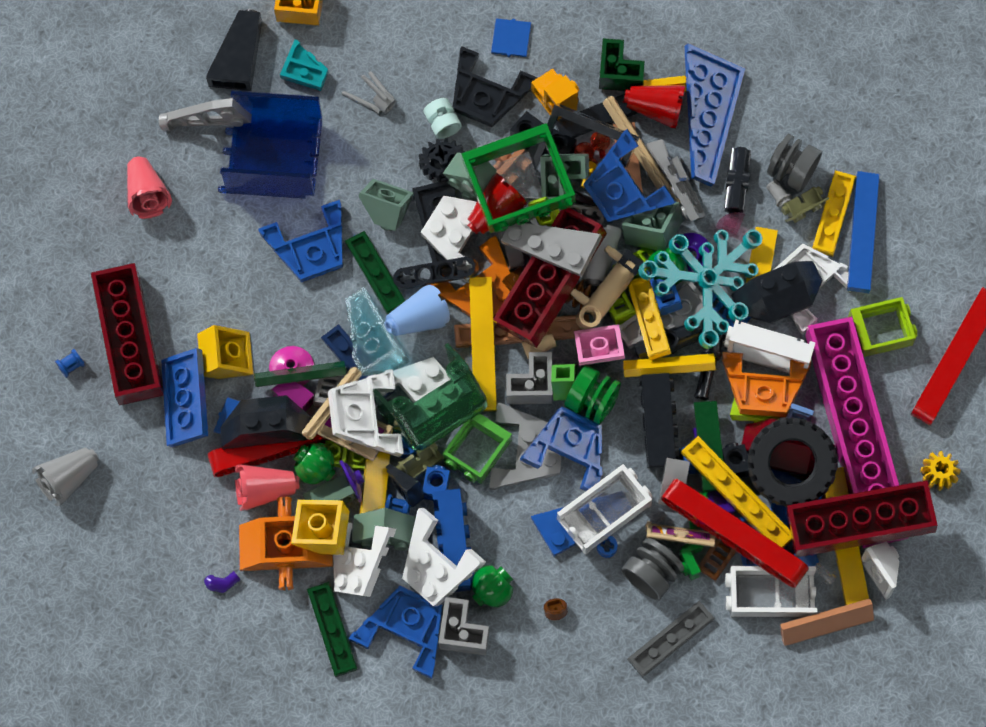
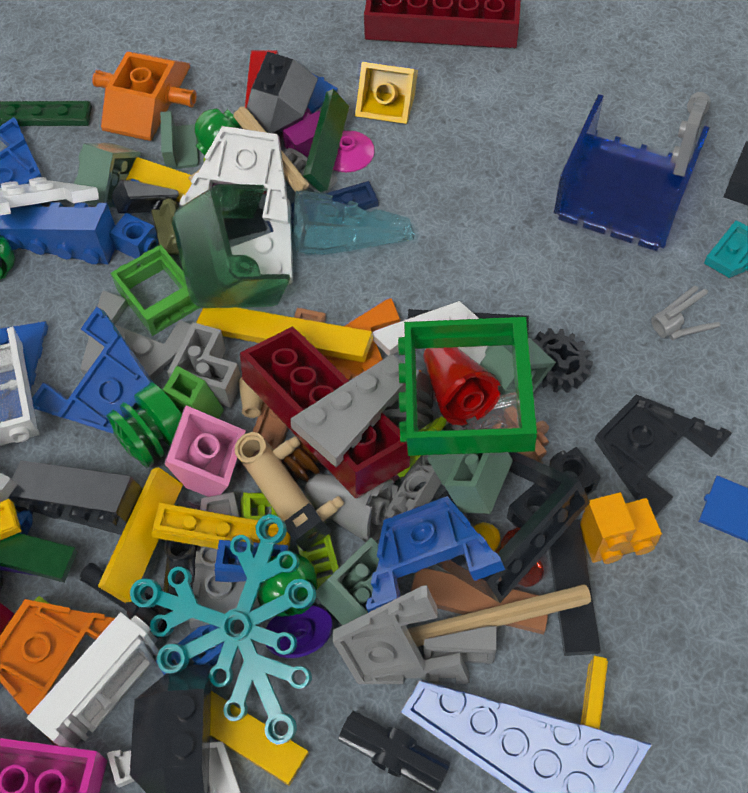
camera: 110 degrees right, 10 degrees down
(145, 189) = (615, 62): coral cone -> none
(184, 397) = (355, 45): blue plate -> none
(221, 584) = (139, 32): dark purple arm -> none
(263, 485) = (217, 77): coral cone -> none
(314, 252) = (479, 200): blue wing -> none
(321, 526) = (131, 104): yellow slope -> none
(354, 478) = (177, 151): dark purple dish -> none
(358, 568) = (78, 134): white wing -> none
(375, 272) = (430, 255): dark green tile -> none
(385, 203) = (519, 281): sand green slope -> none
(419, 313) = (346, 263): light blue cone -> none
(435, 270) = (399, 298): black beam -> none
(442, 118) = (621, 376): light aqua wheel -> none
(617, 72) = (642, 624): dark green brick -> none
(656, 102) = (561, 667): red cone -> none
(731, 222) = (330, 717): clear pink tile -> none

